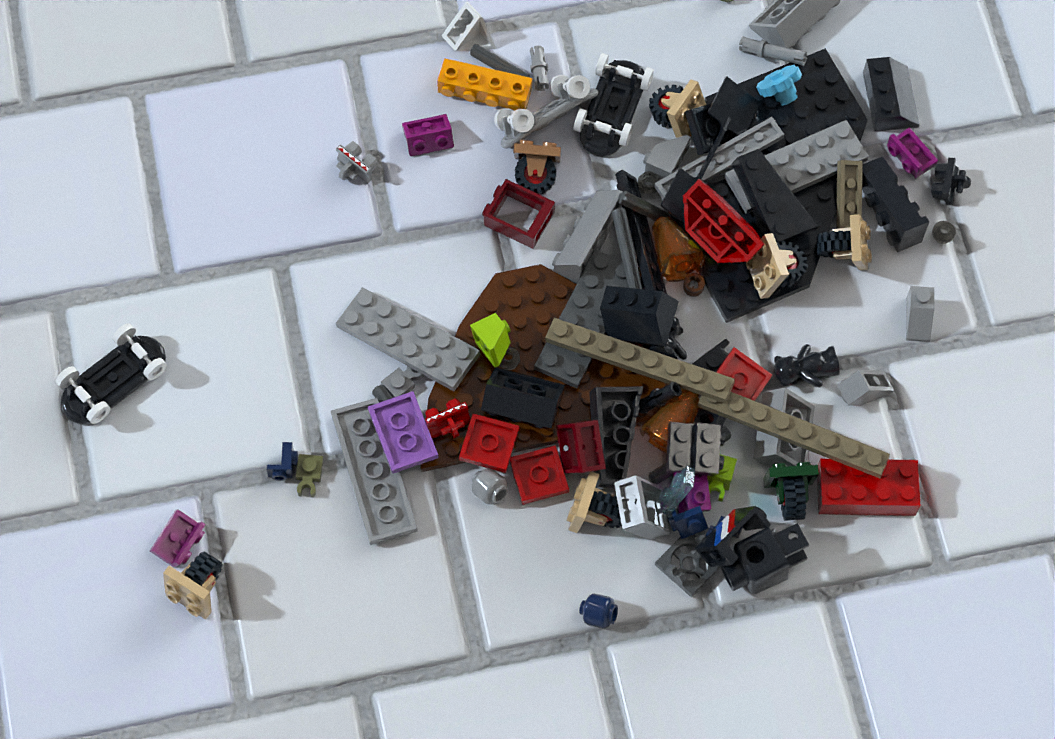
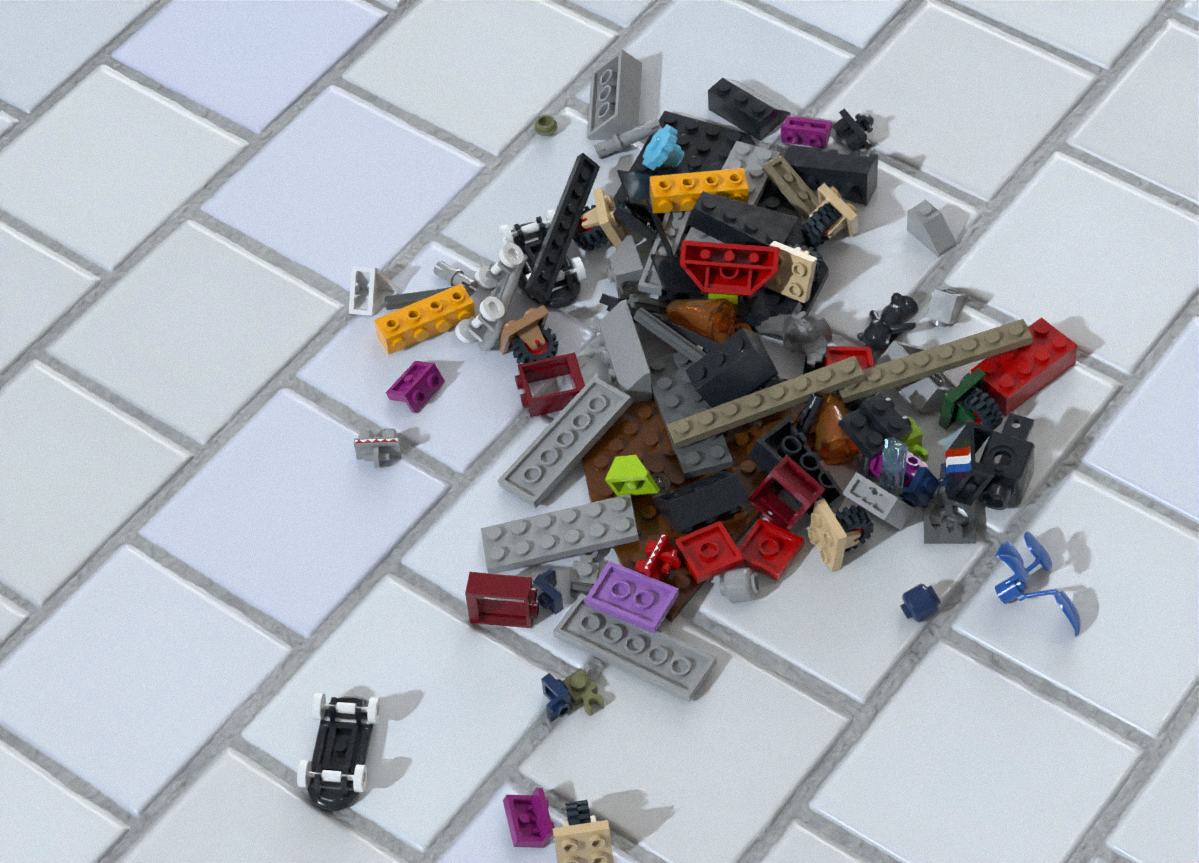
camera: 35 degrees left, 15 degrees down
(315, 357) = (499, 611): none -> dark red window
(357, 368) = (546, 593): none -> dark blue bracket
(480, 268) = (565, 441): none -> light grey plate
(642, 92) = (562, 228): none -> black plate
(674, 653) = (1015, 585): none -> blue plant
(727, 322) = (799, 334): none -> flat silver helmet
(778, 147) = (679, 197): none -> light orange brick
(943, 237) = (887, 166): clear smoke plate -> none

